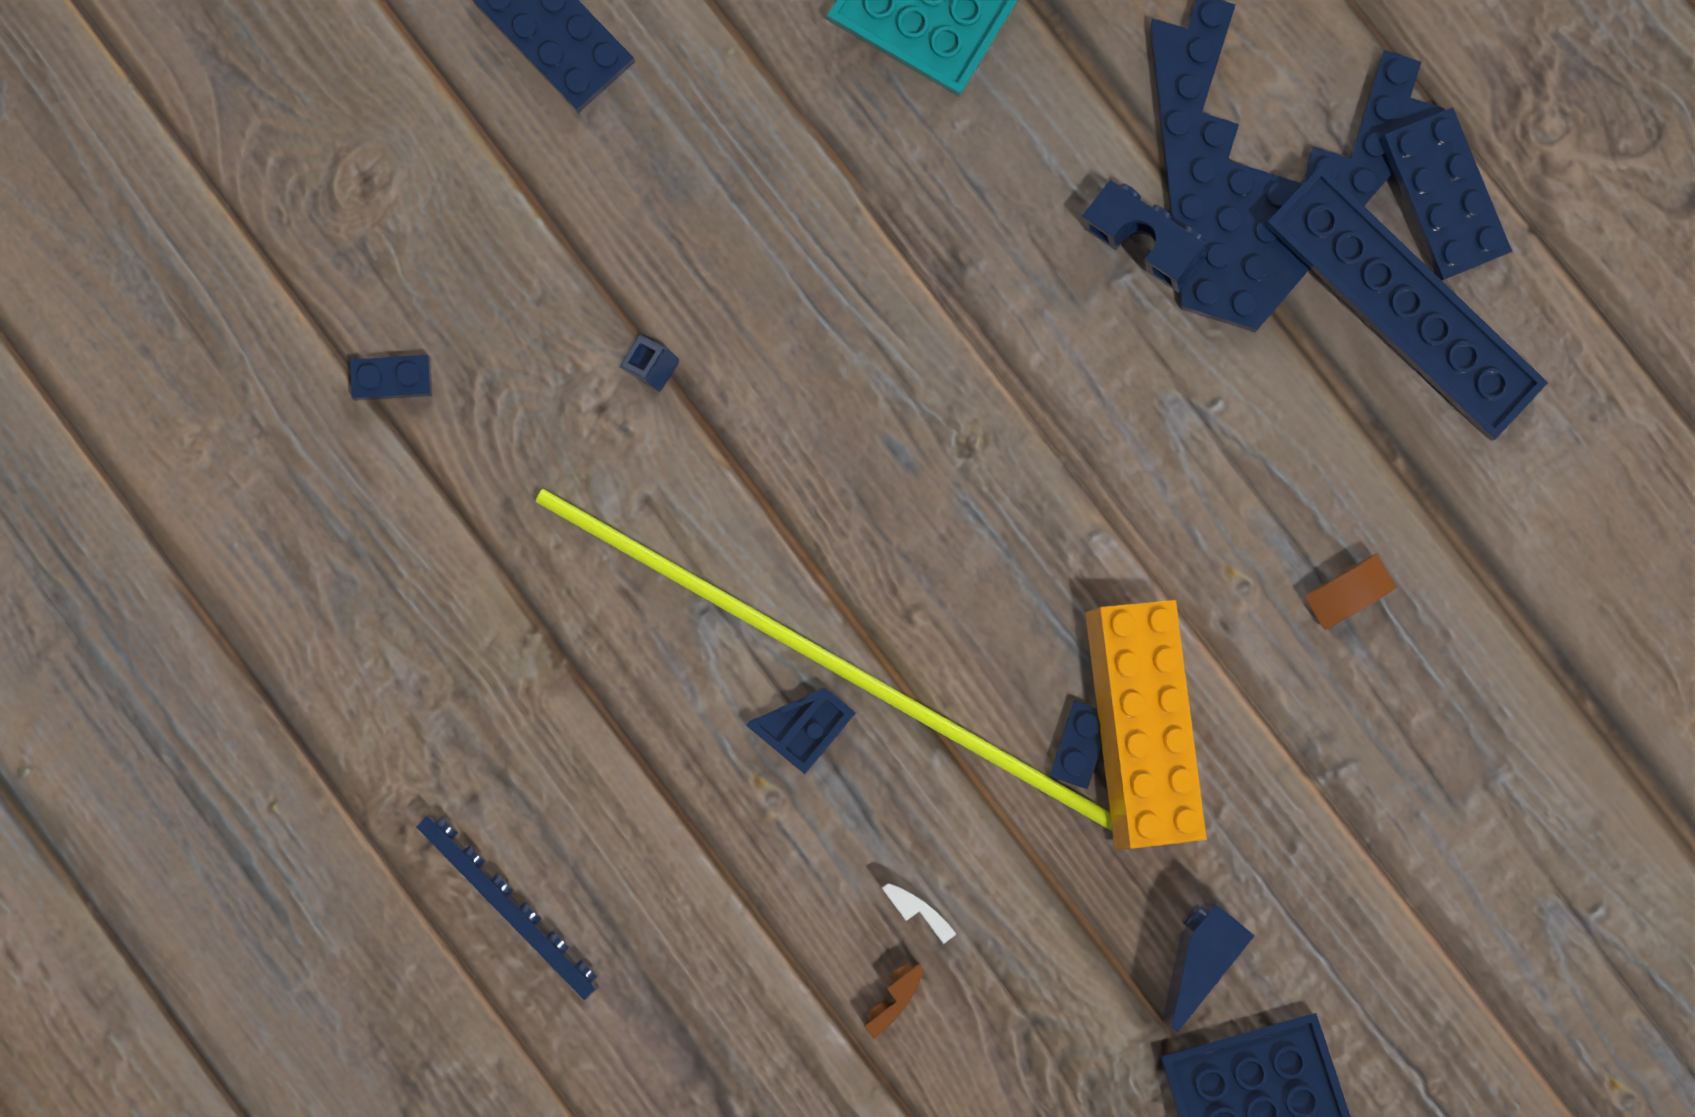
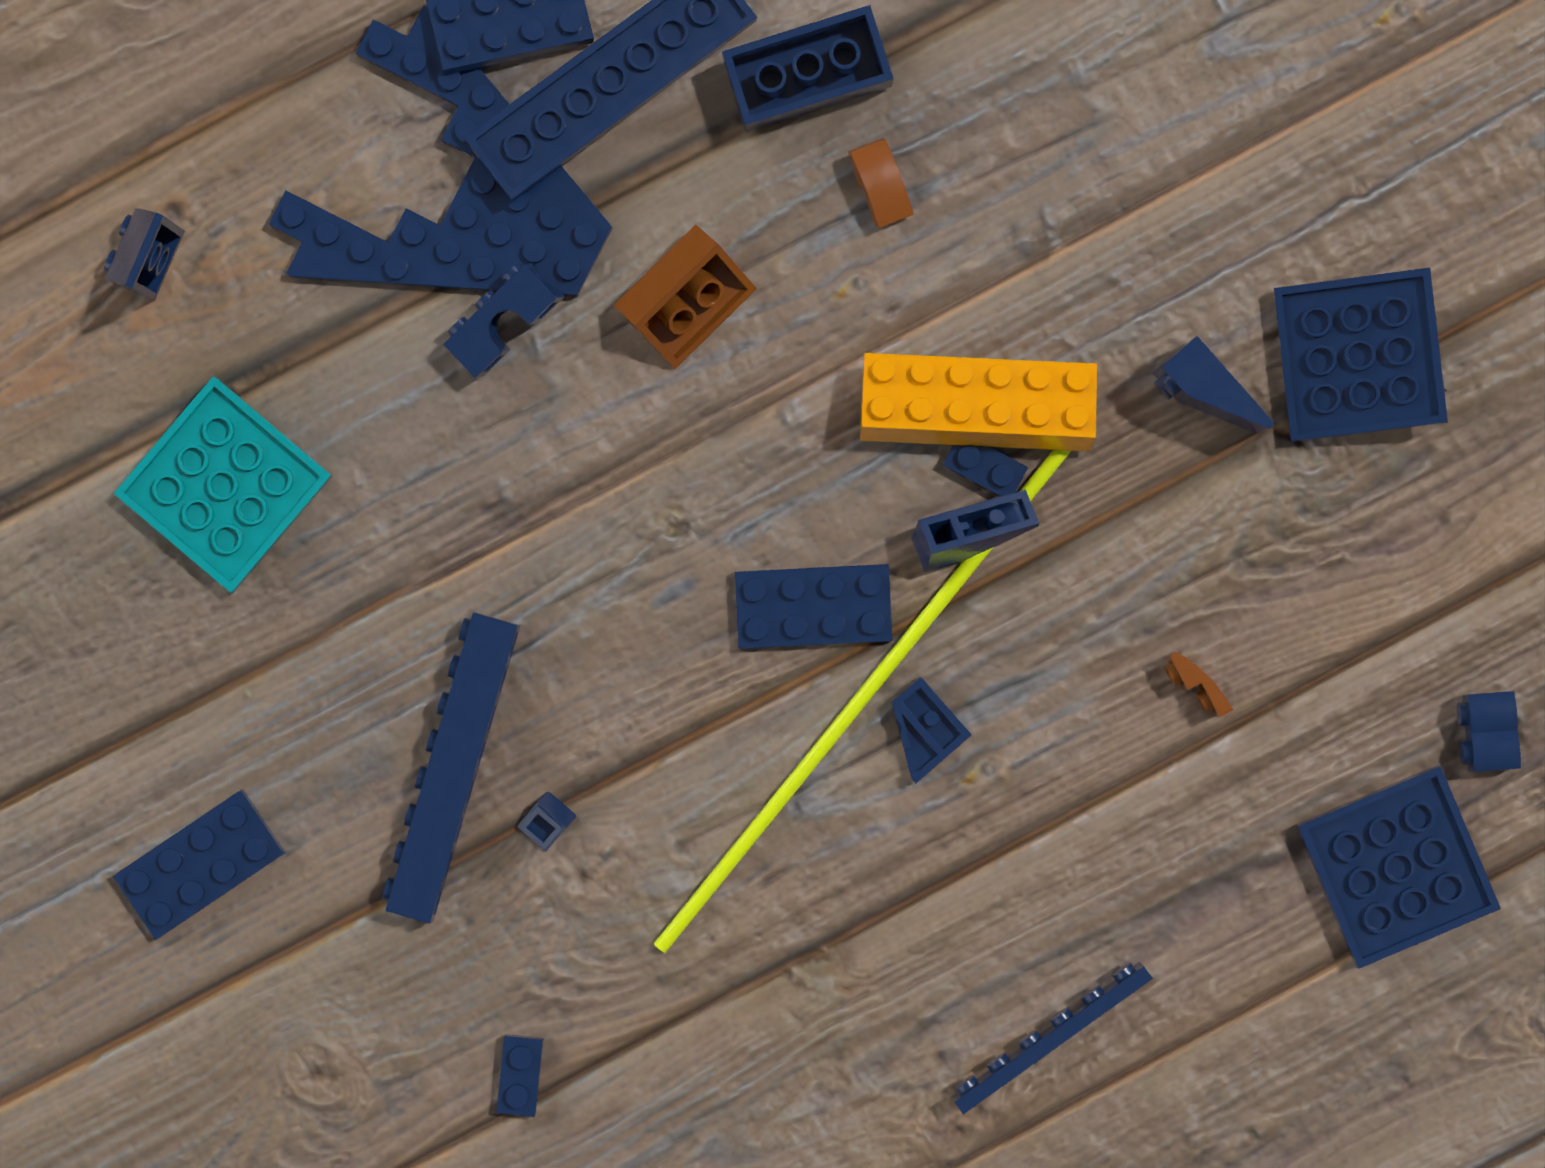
camera: 85 degrees left, 5 degrees up
(688, 259) = (452, 767): none -> dark blue brick
(909, 594) = (813, 606): none -> dark blue plate
(910, 905) = (1111, 653): white slope -> none
(1014, 740) = (972, 529): none -> dark blue slope
(1199, 413) = (685, 296): none -> dark orange slope
(1453, 496) = (807, 68): none -> dark blue brick

